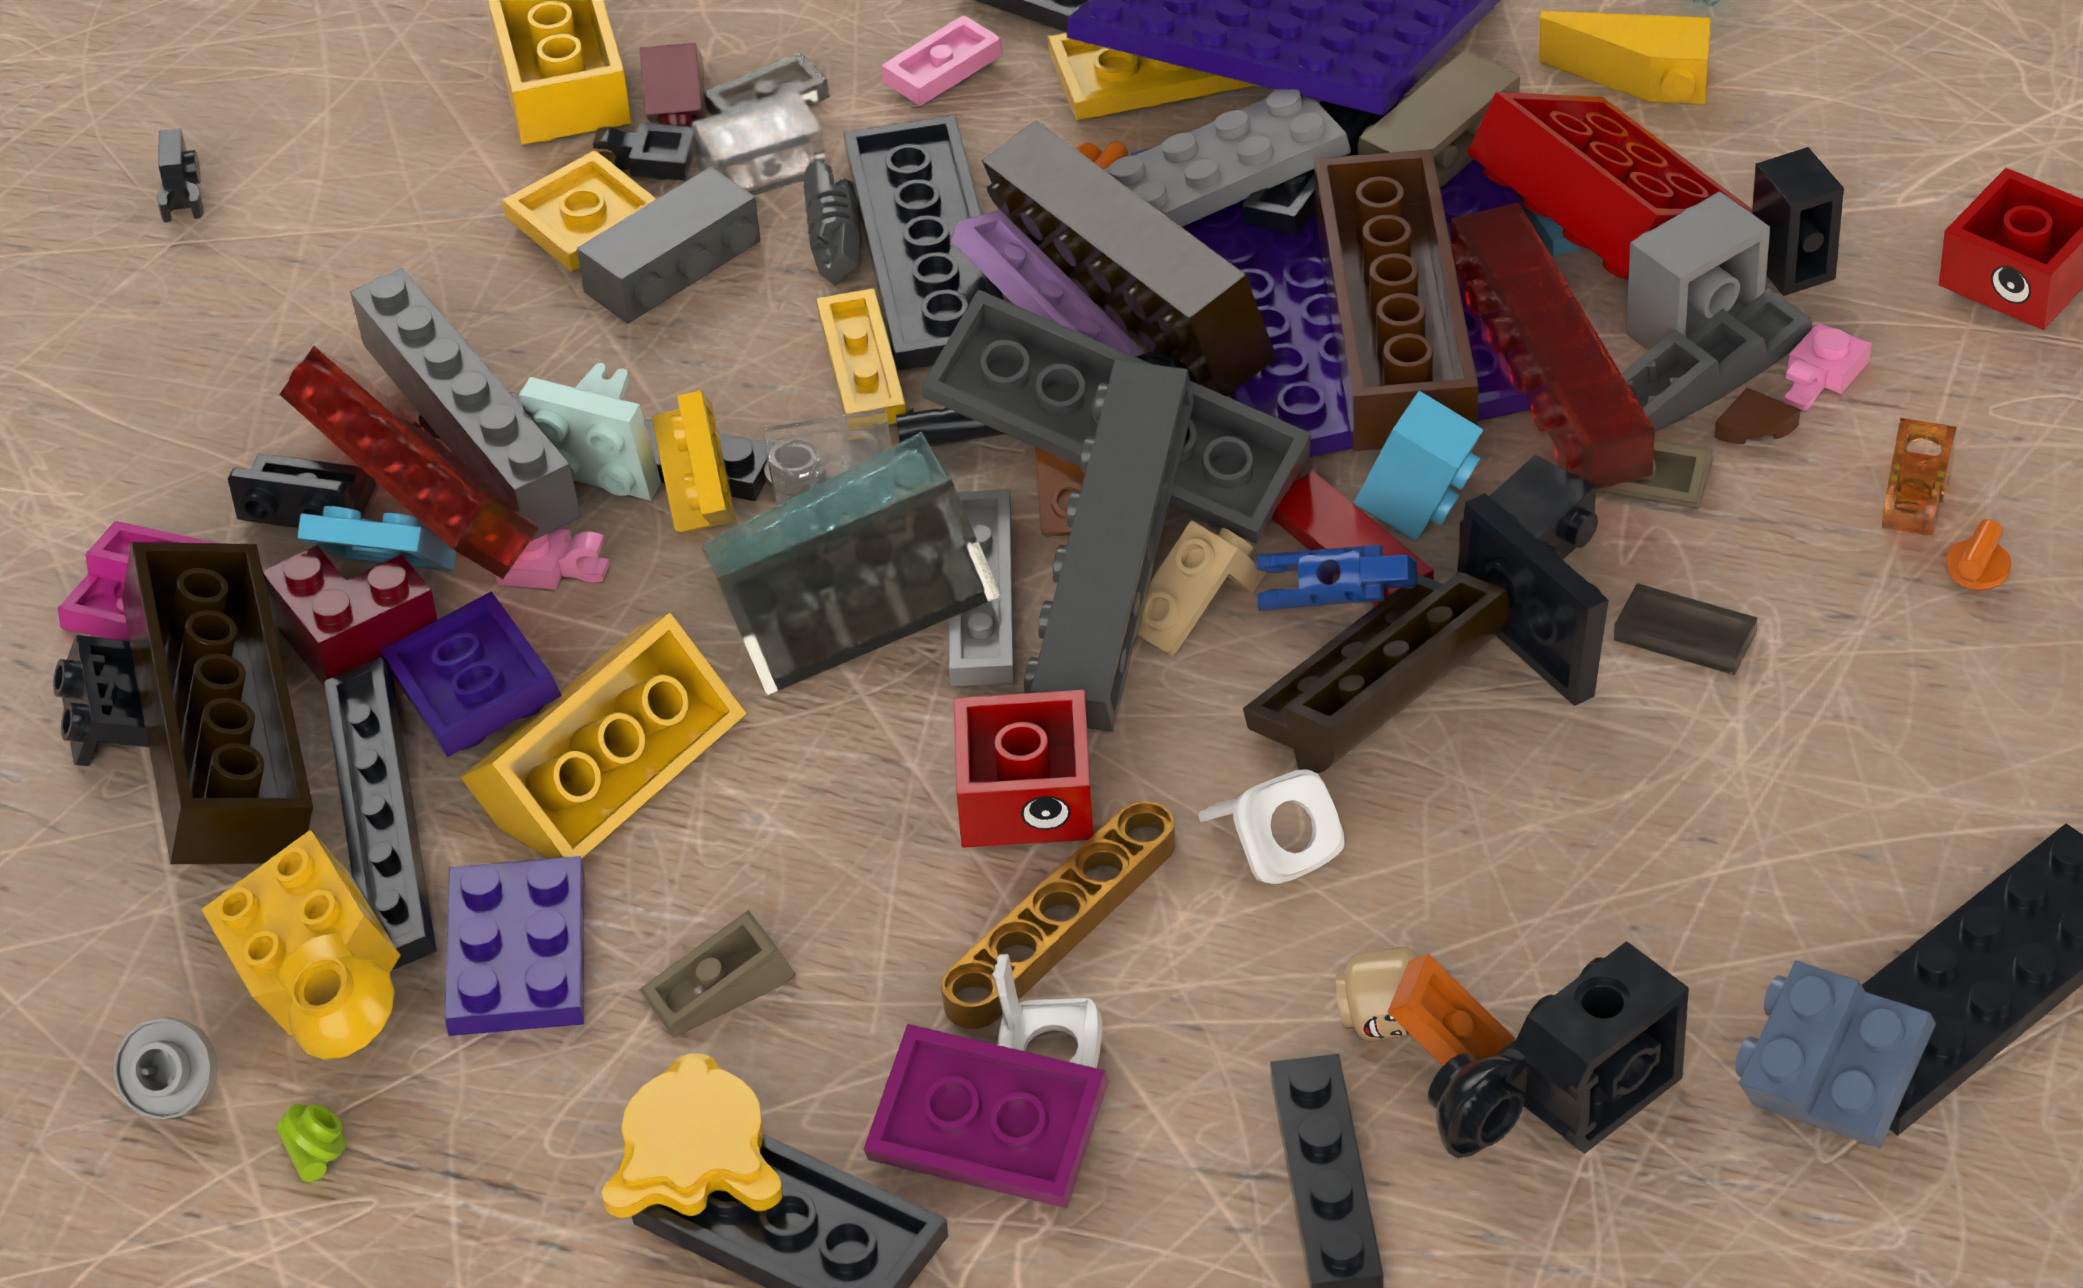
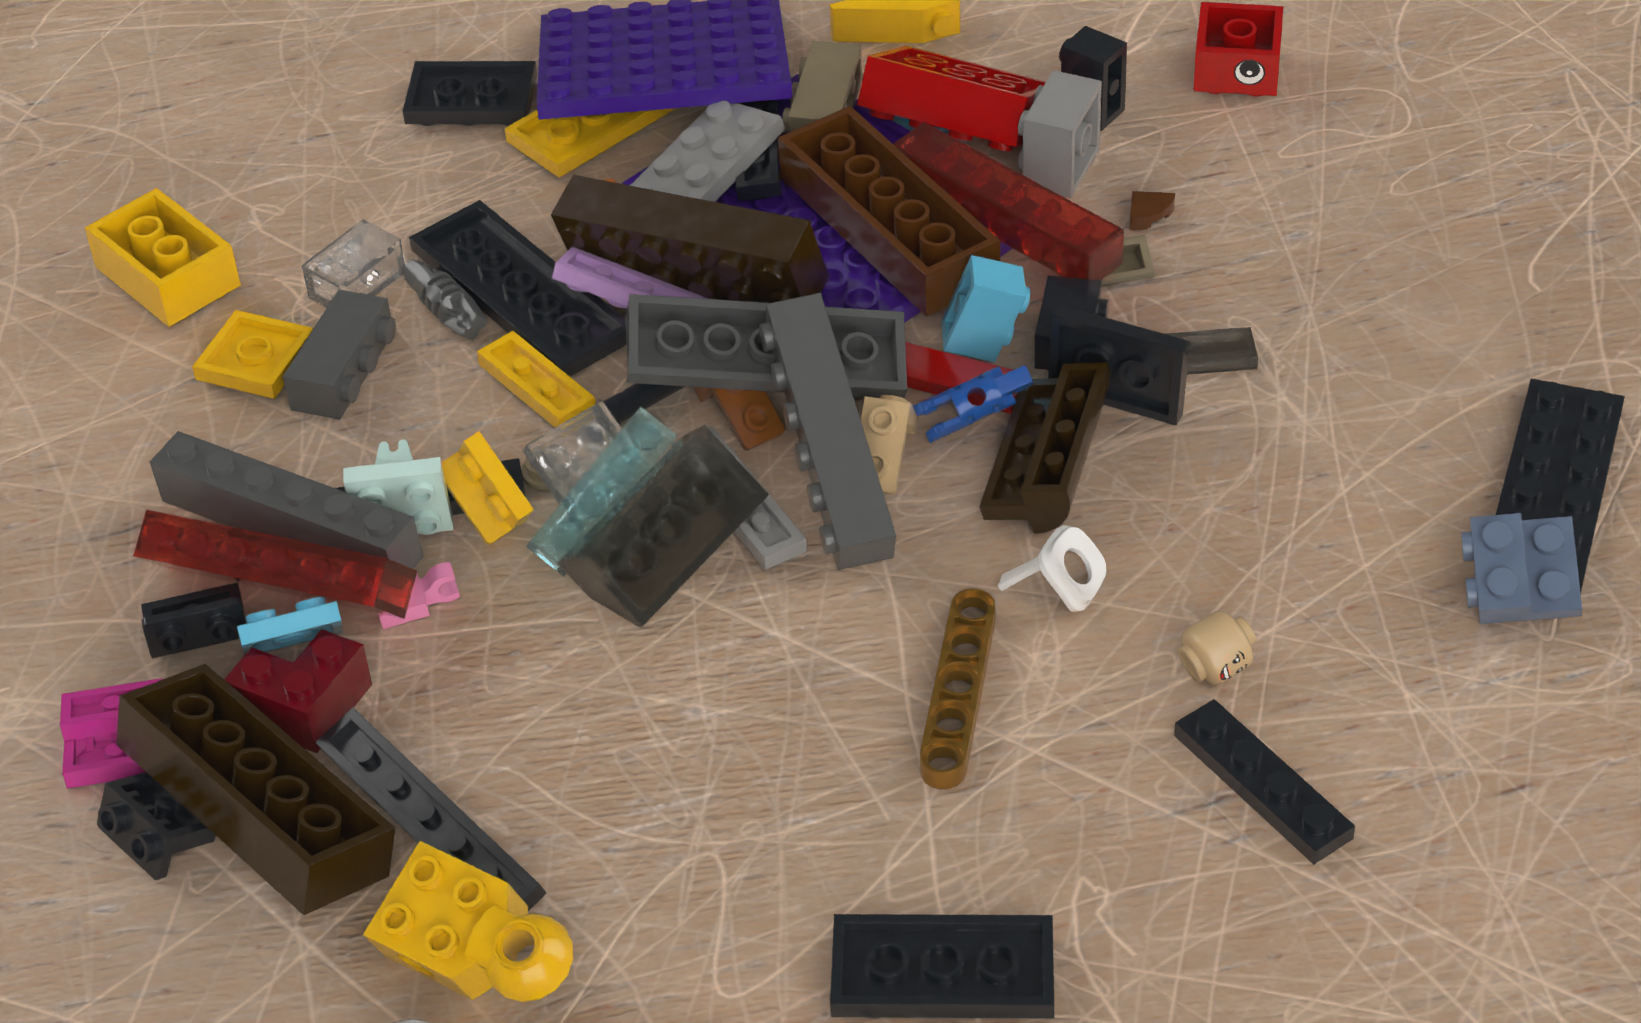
camera: 30 degrees left, 0 degrees up
(470, 674) = (429, 692): dark purple plate -> none
(515, 946) = (595, 866): plate -> none
(605, 743) = (557, 702): yellow slope -> none
(652, 152) = (275, 295): black plate -> none
(673, 83) = (260, 246): slope -> none
(689, 1137) = (842, 940): yellow tile -> none
(718, 976) = (757, 825): dark tan slope -> none
(769, 82) = (326, 226): clear smoke plate -> none
(941, 60) = (437, 169): bright pink plate -> none
(986, 1115) = (1024, 836): magenta plate -> none
(1022, 768) = (872, 600): red brick -> none
(1032, 1017) = (1026, 747): white piece -> none
(1444, 1014) = (1282, 649): orange plate -> none
(1578, 1061) = (1382, 638): black brick -> none
(1715, 359) = (1103, 170): dark grey slope -> none
(1824, 360) = (1164, 159): bright pink plate -> none
(1918, 480) = (1281, 211): clear orange leg -> none
(1980, 560) = (1352, 244): orange plate -> none

